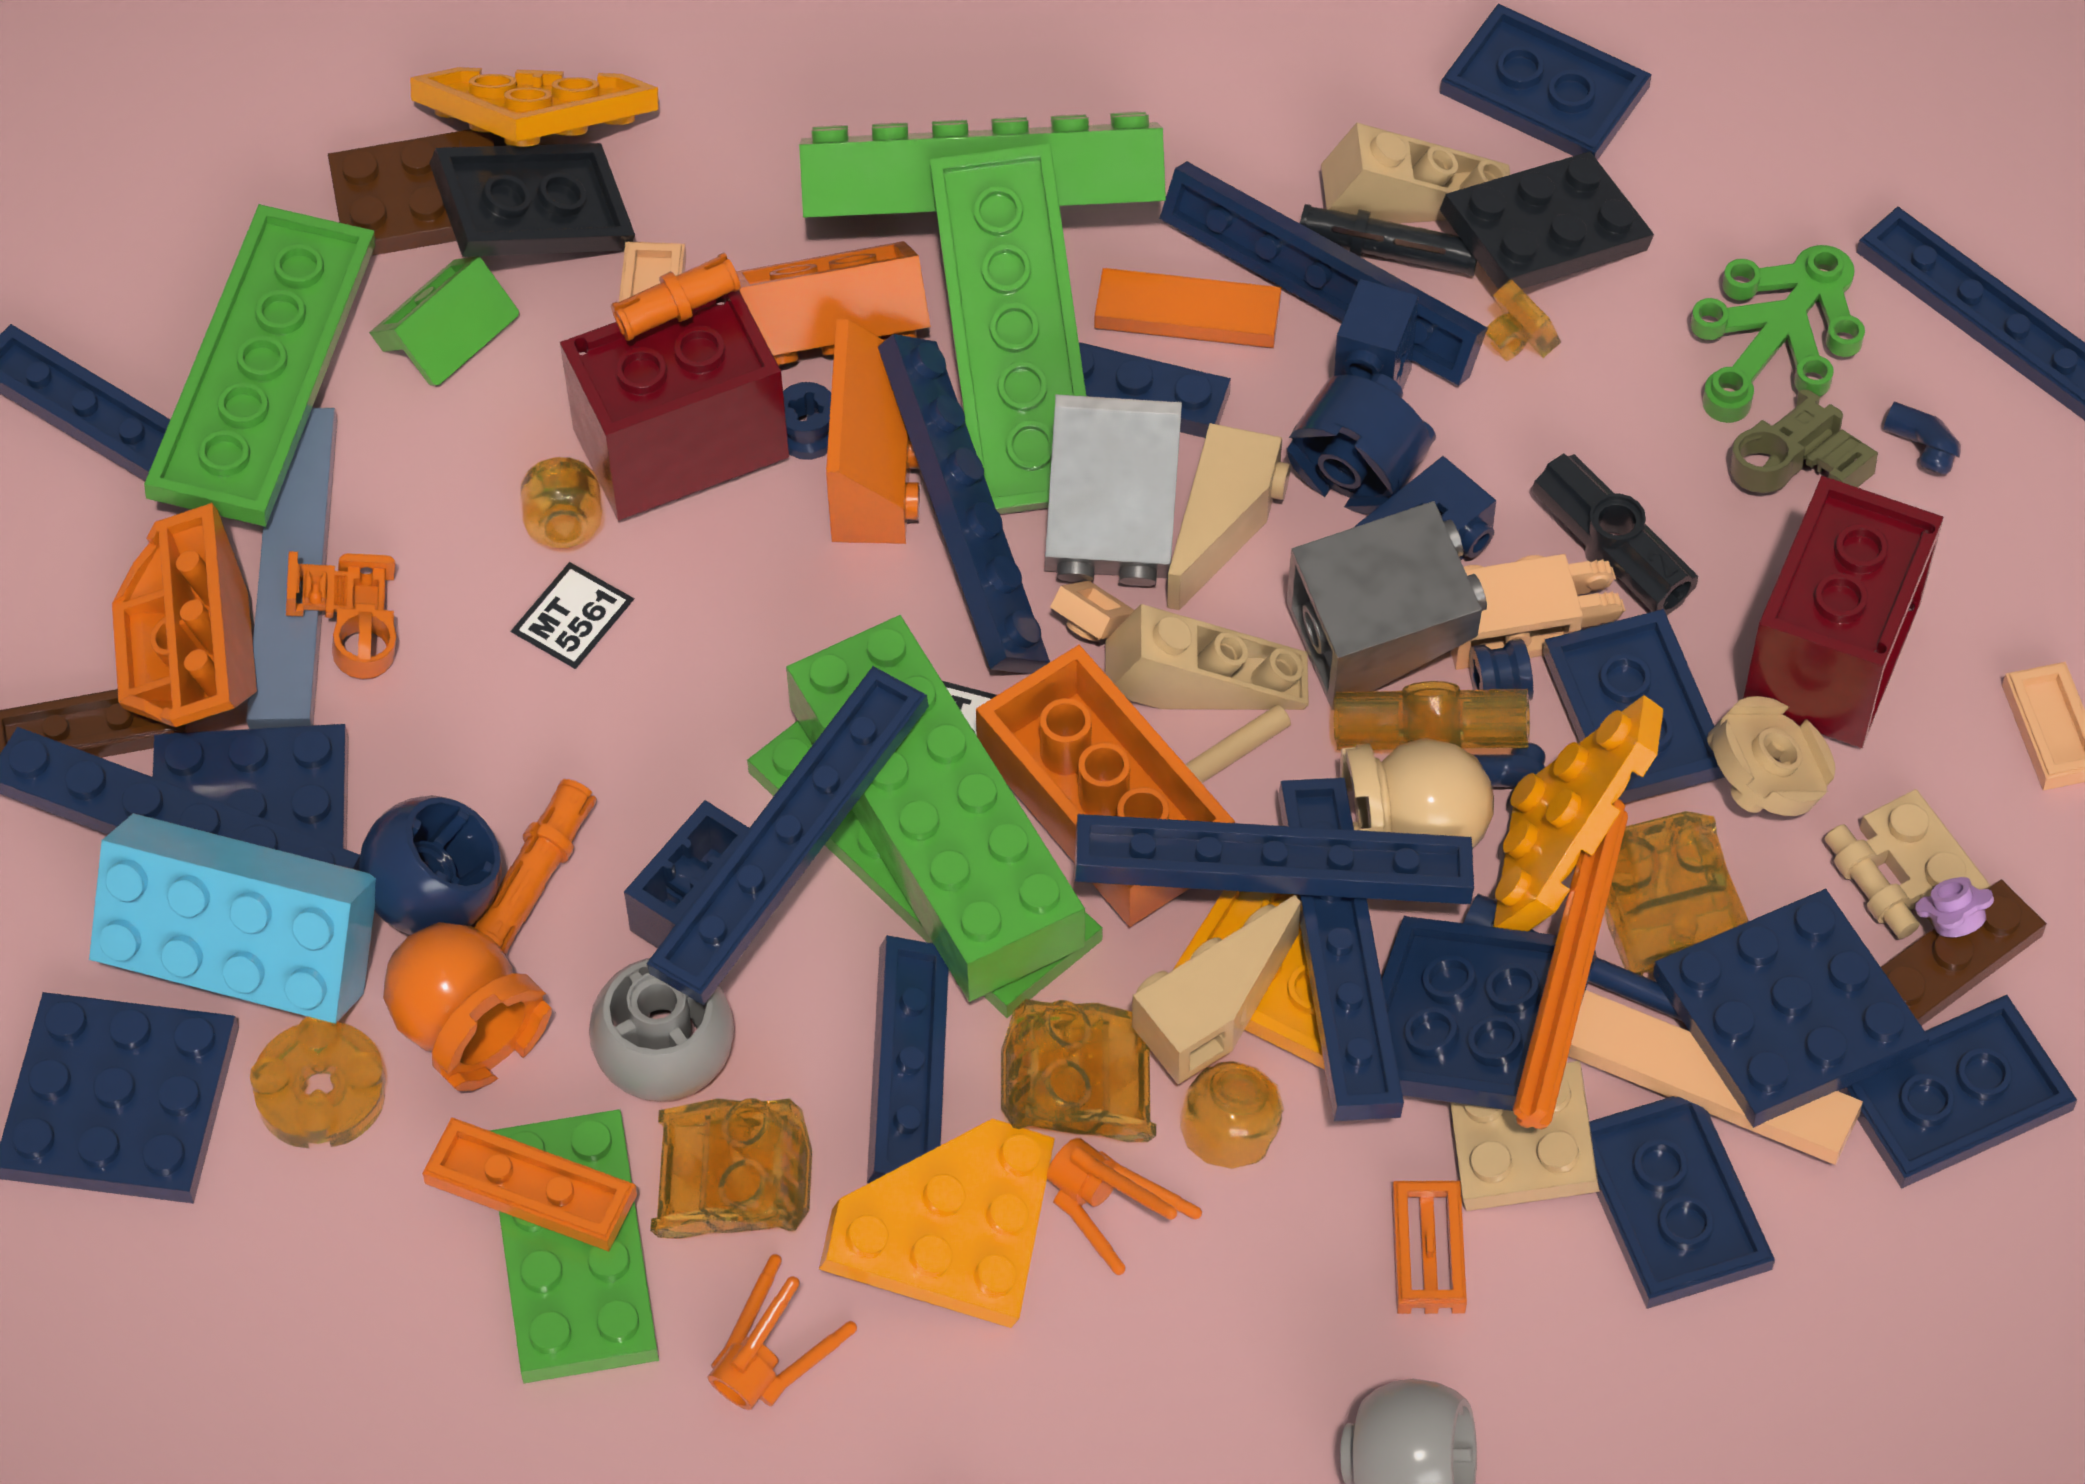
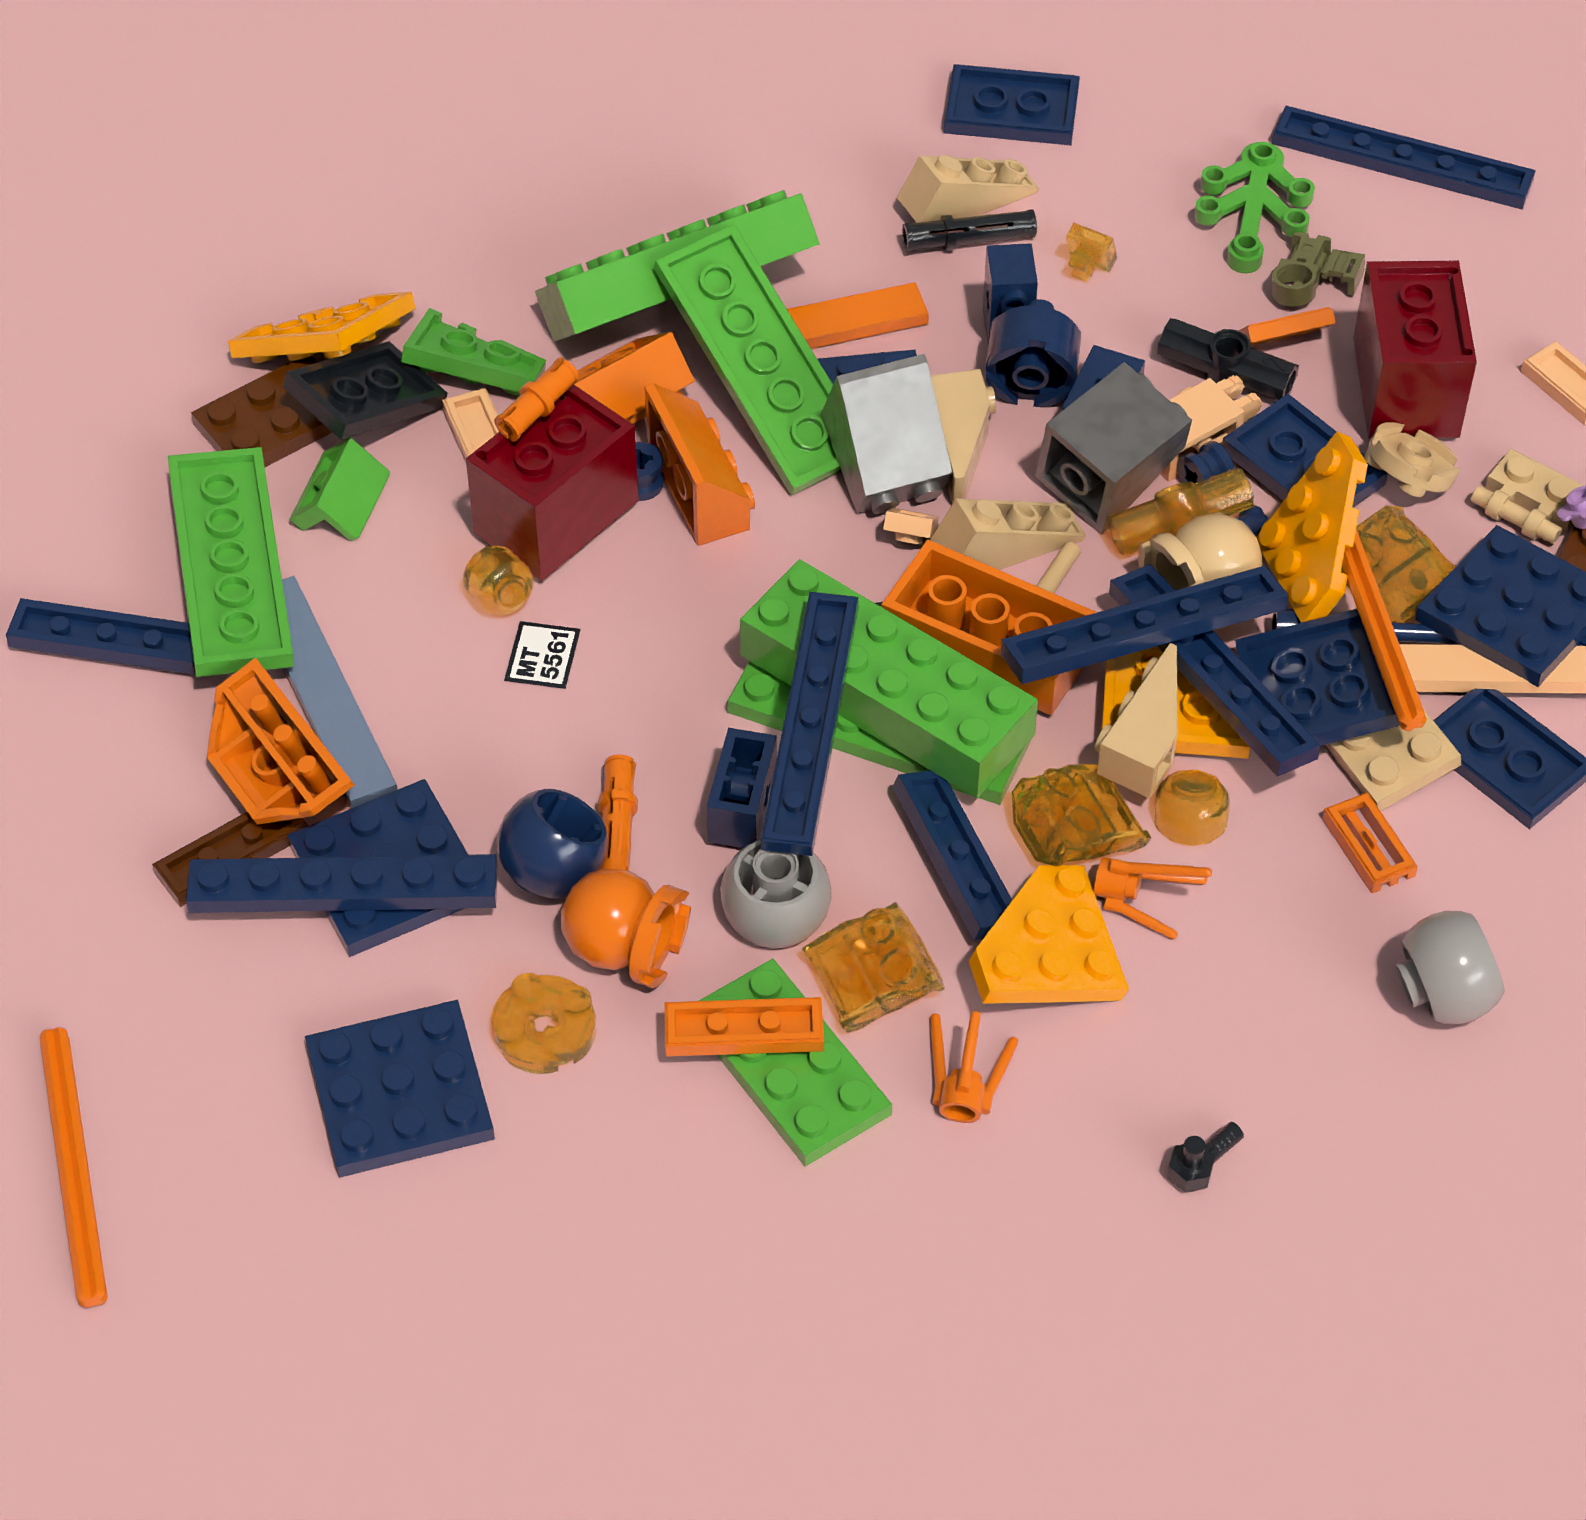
camera: 25 degrees left, 5 degrees down
(233, 917) = (429, 927): medium azure brick -> none
(358, 605) = (388, 696): orange piece -> none
(683, 193) = (460, 353): none -> bright green wing
(963, 505) = (797, 490): dark blue plate -> none
(1311, 264) = (923, 260): dark blue plate -> none
(1546, 222) = (1068, 184): black plate -> none
(1713, 516) = (1289, 326): none -> orange tile
(1927, 430) = (1386, 233): dark blue arm -> none

